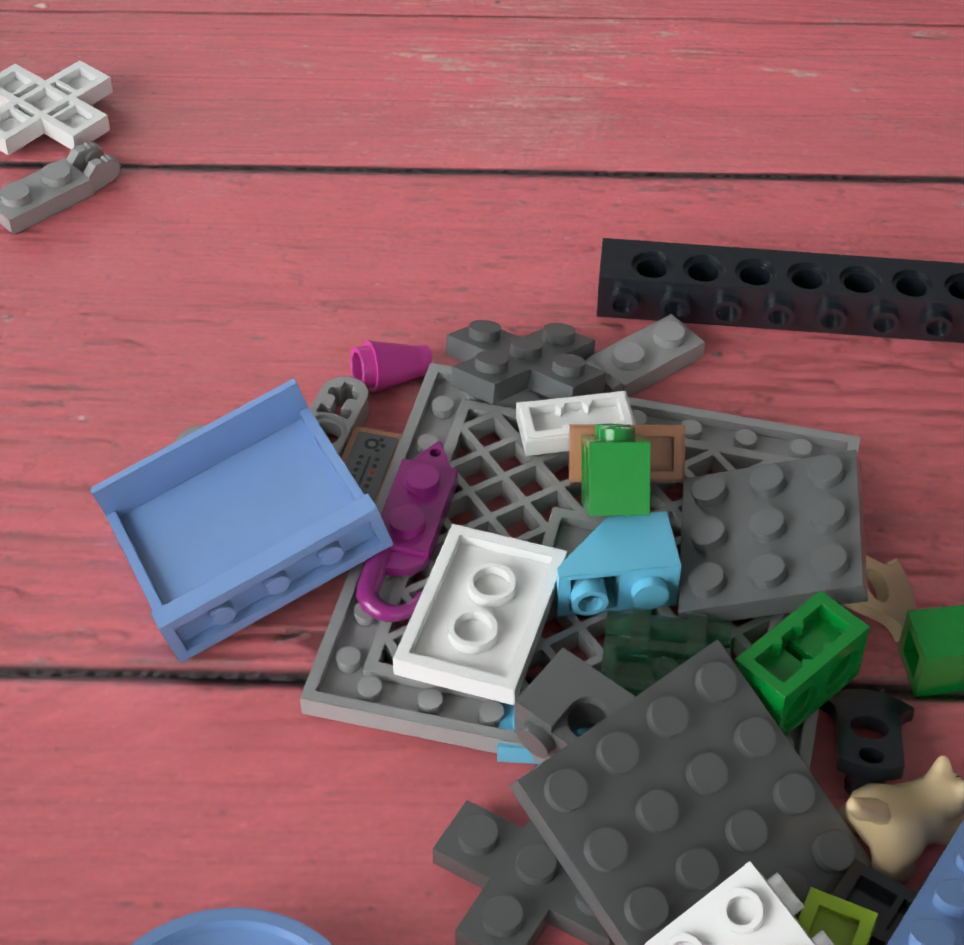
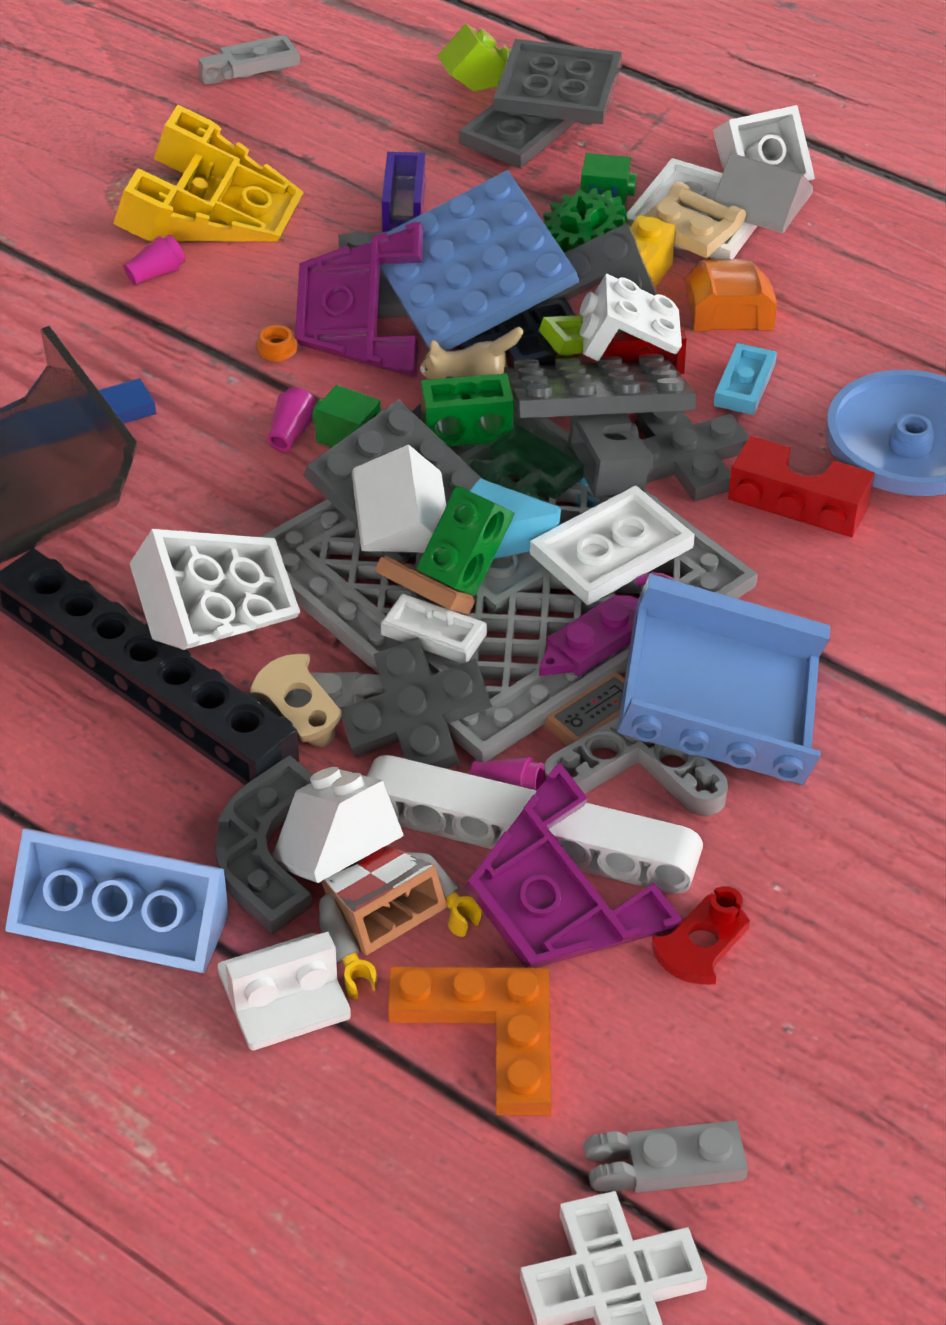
camera: 145 degrees left, 0 degrees up
(110, 353) = (715, 913): none -> red piece
(250, 228) = (506, 997): none -> orange plate
(281, 272) = (544, 899): none -> magenta wing
(321, 336) = (594, 836): none -> white beam
(382, 853) = (828, 501): none -> red arch
(399, 217) = (384, 899): none -> torso
(427, 146) = (285, 989): none -> white bracket
(481, 233) = (335, 824): none -> white slope
(551, 210) = (243, 842): none -> dark grey plate
(605, 141) = (117, 901): none -> light blue slope
(664, 325) = (291, 673): none -> tan piece
(717, 482) = (398, 501): none -> white slope
(805, 332) = (210, 586): none -> white wedge

